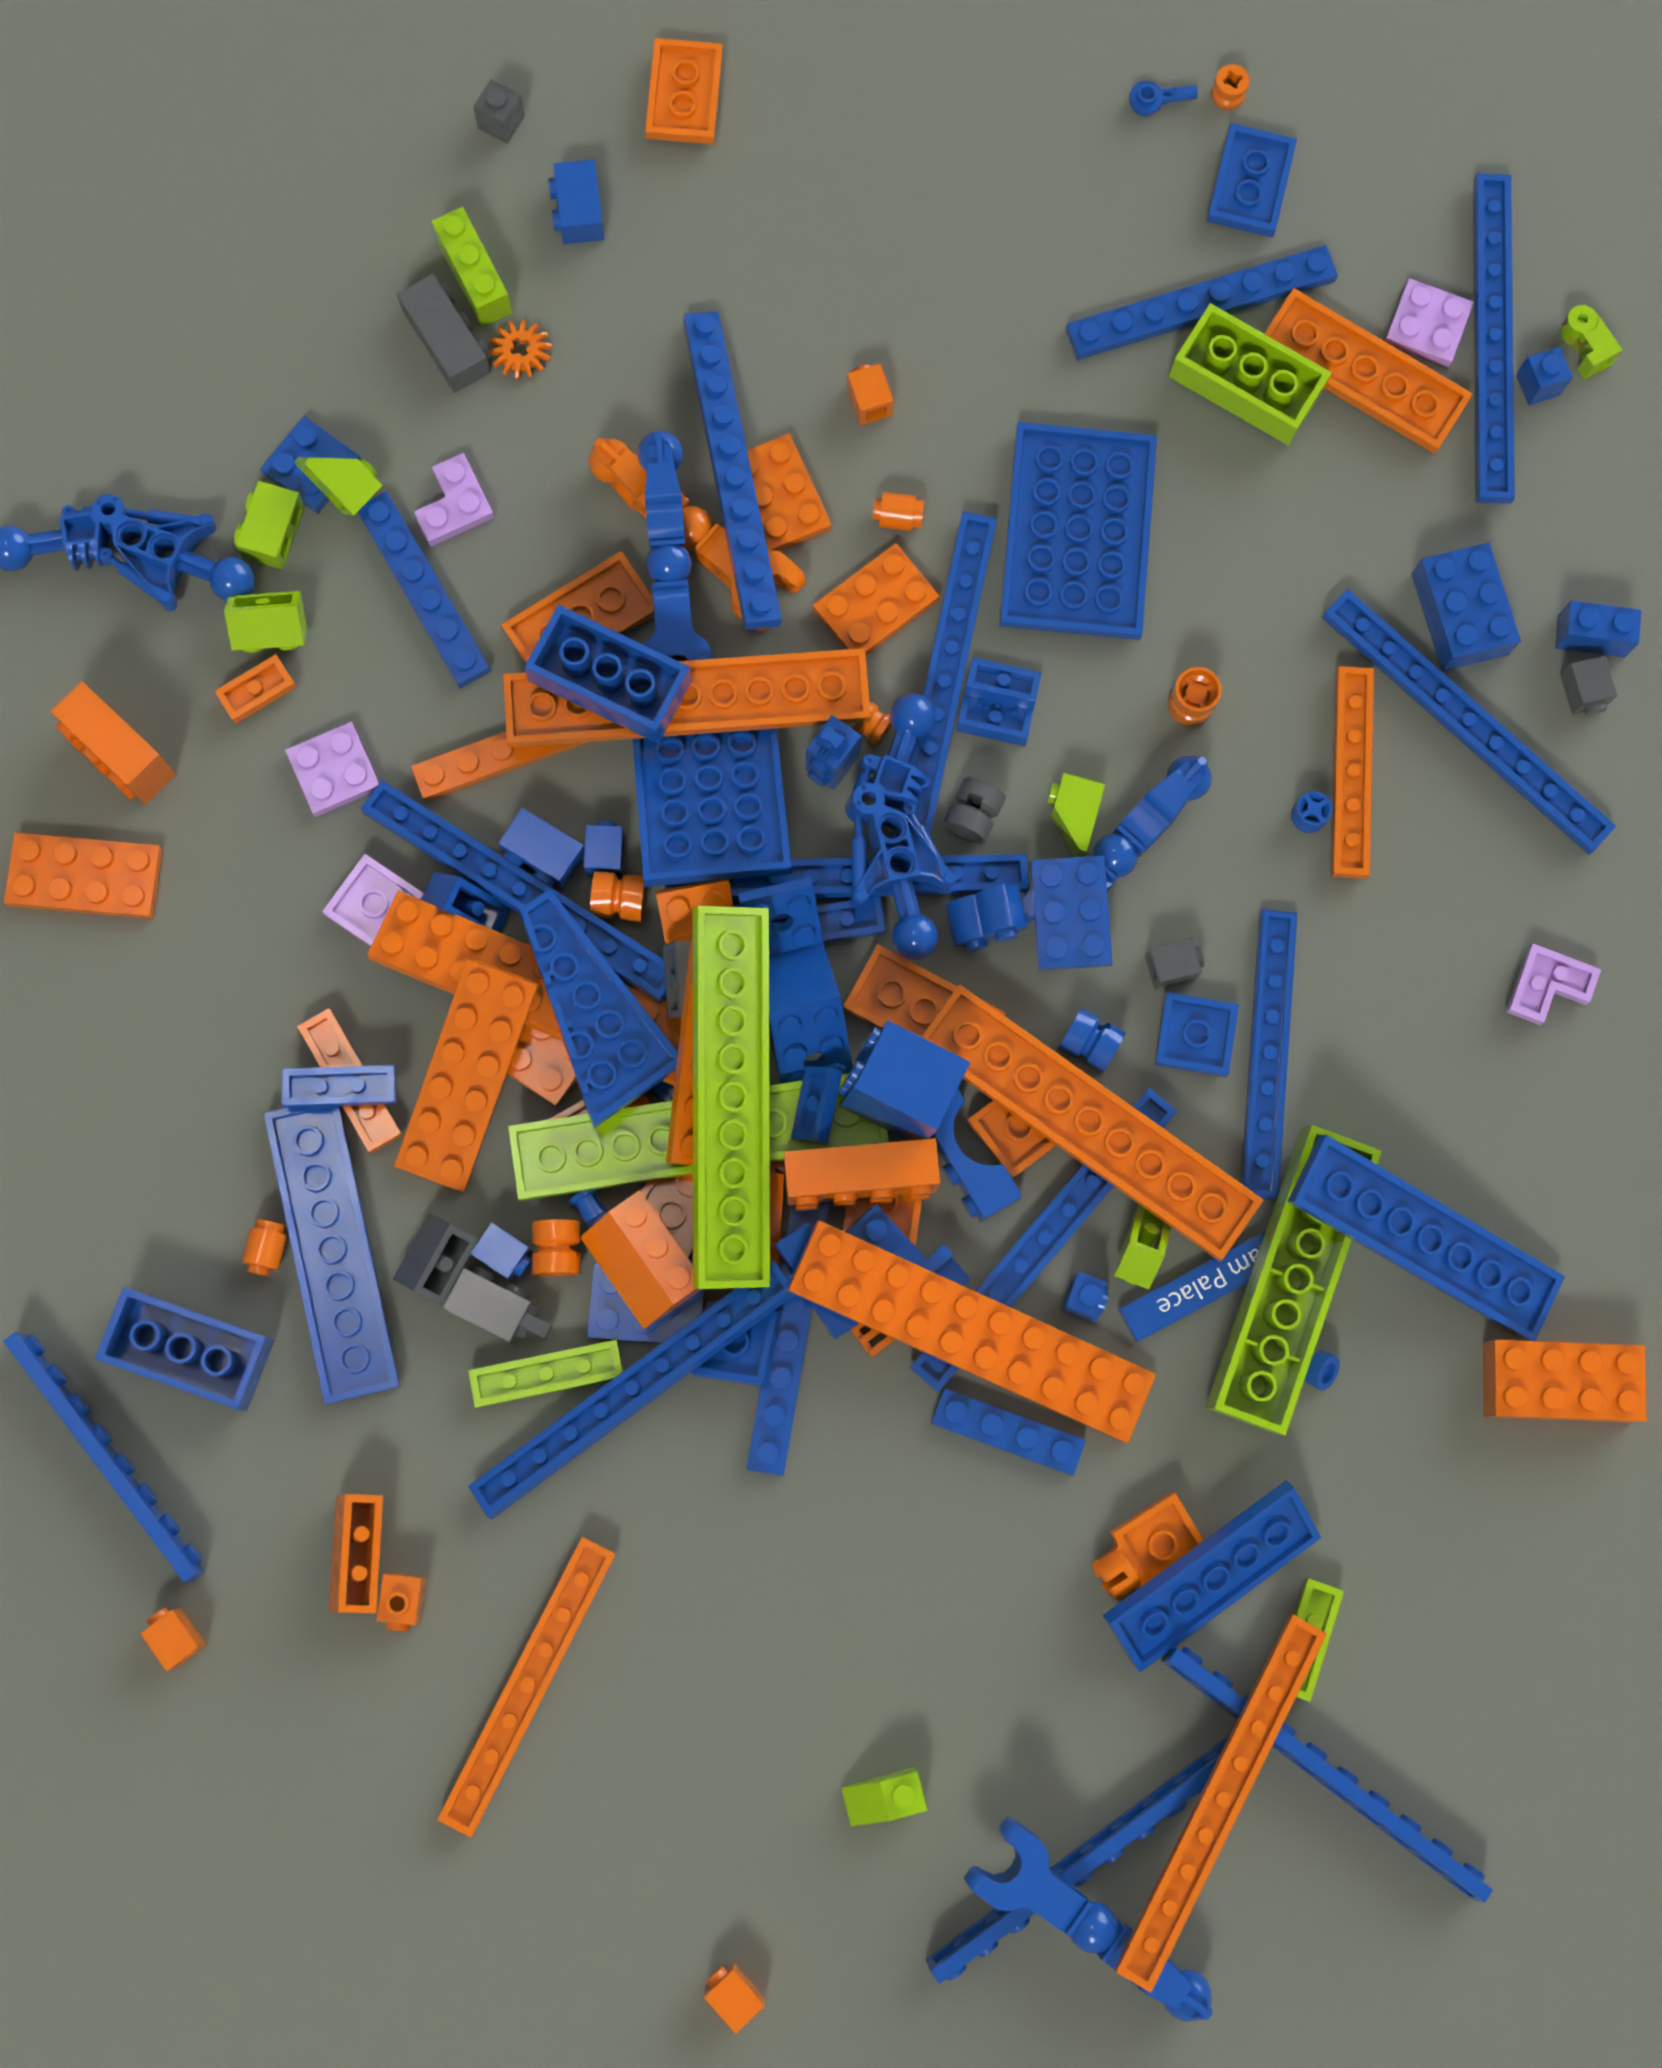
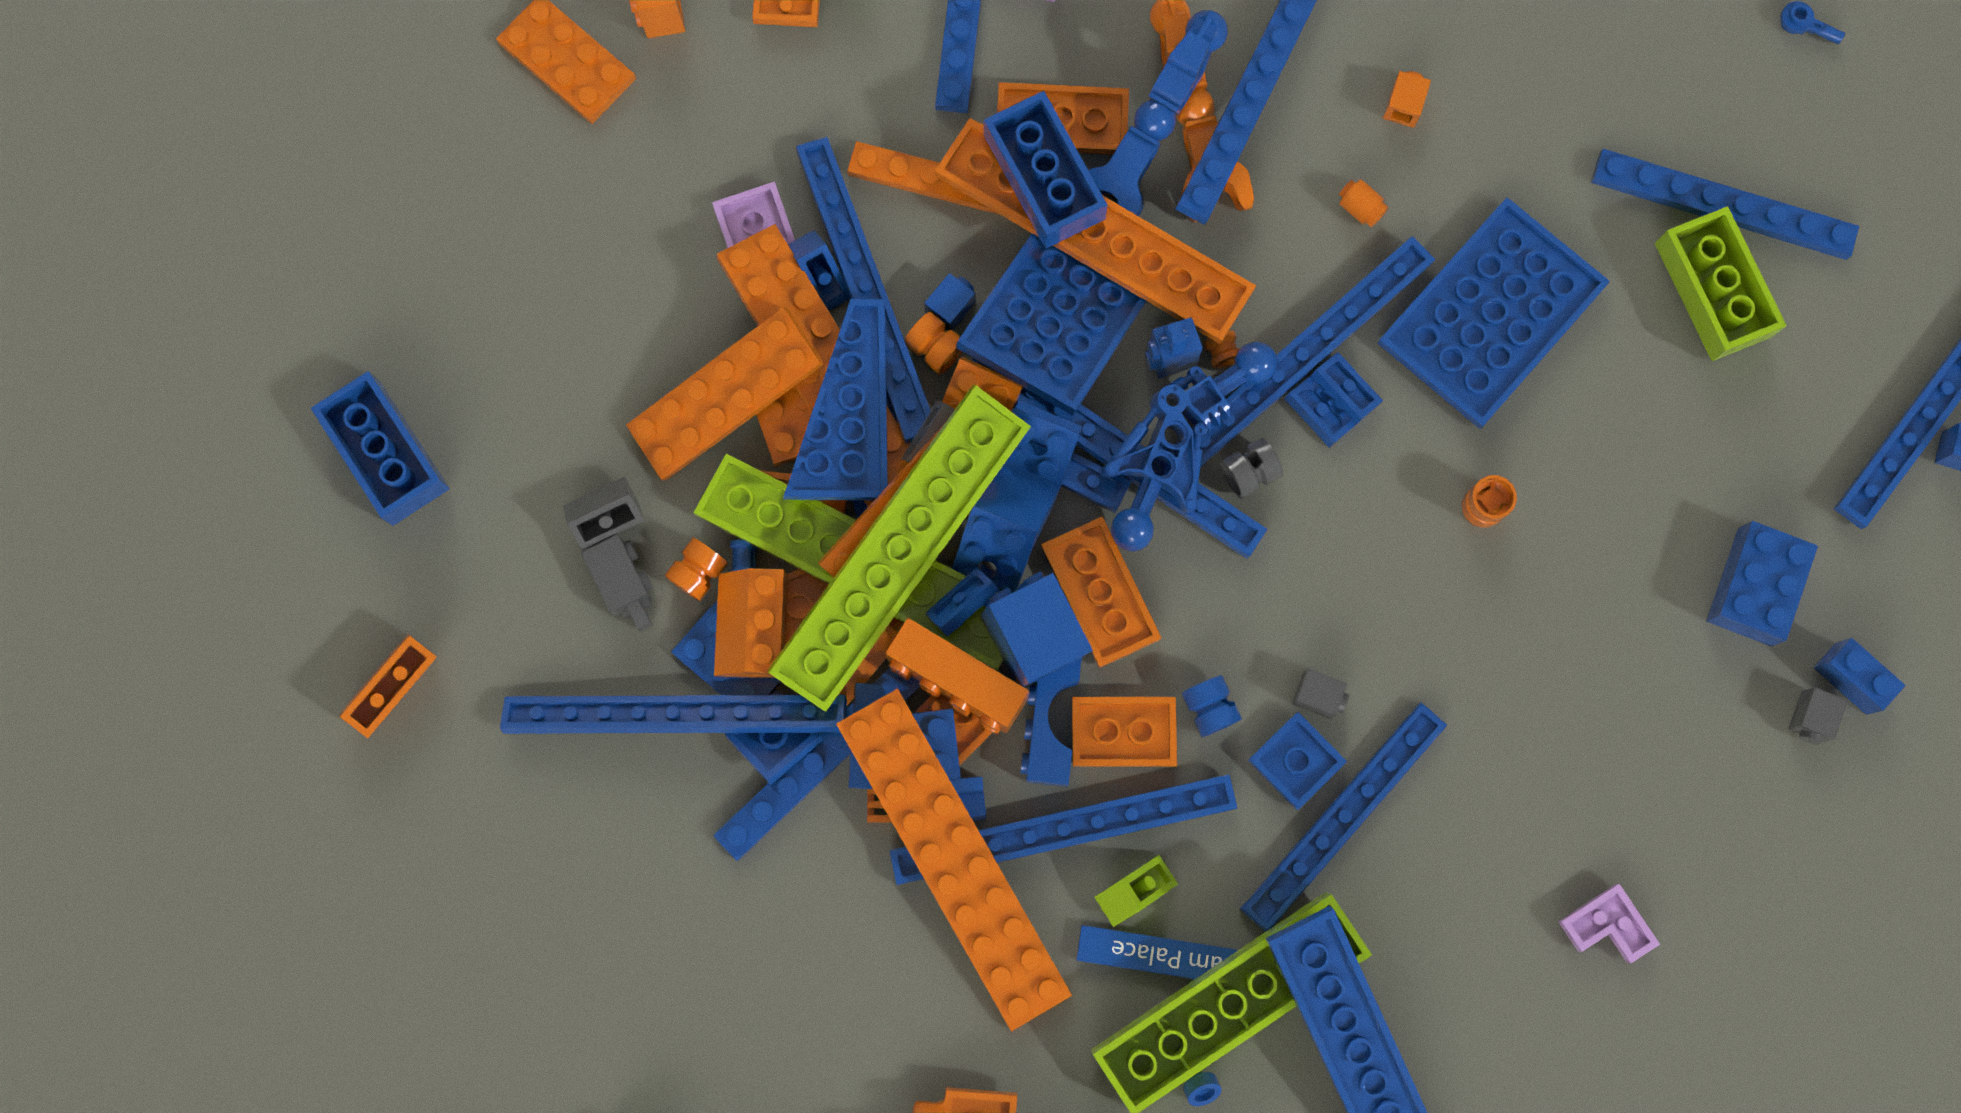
camera: 45 degrees right, 0 degrees up
(114, 1467) = (270, 496): blue plate -> none
(172, 1637) = (219, 649): orange brick -> none
(264, 1247) = (491, 416): orange brick -> none
(332, 1252) = (537, 453): plate -> none
(333, 769) = (799, 104): lavender plate -> none
(334, 1049) = (641, 340): orange plate -> none
(339, 1086) = (628, 337): plate -> none
(401, 1601) = (395, 743): orange brick -> none
(502, 1253) = (655, 544): brick -> none
(526, 1687) = (437, 874): orange plate -> none
(541, 849) = (904, 268): blue brick -> none
(545, 1373) = (621, 656): lime plate -> none
(785, 495) = (1284, 131): orange plate -> none
(876, 601) = (1295, 259): orange plate -> none
(986, 917) = (1199, 554): blue brick -> none
(1008, 1432) = (928, 954): blue plate -> none
(1071, 913) = (1266, 597): blue plate -> none
(1075, 810) = (1331, 523): lime slope -> none
(1086, 1297) = (1062, 897): blue brick -> none
(1094, 1124) = (1163, 769): orange plate -> none
(1185, 781) = (1332, 579): blue piece -> none
(1225, 95) = (1864, 56): orange wheel -> none
(1251, 180) = (1835, 136): blue plate -> none
(1317, 806) = (1524, 654): blue wheel -> none
(1352, 772) = (1572, 648): orange plate -> none
(1371, 372) = (1822, 349): orange plate -> none
(1429, 322) = (1899, 342): lavender plate -> none
(1469, 722) = (1697, 676): blue plate -> none

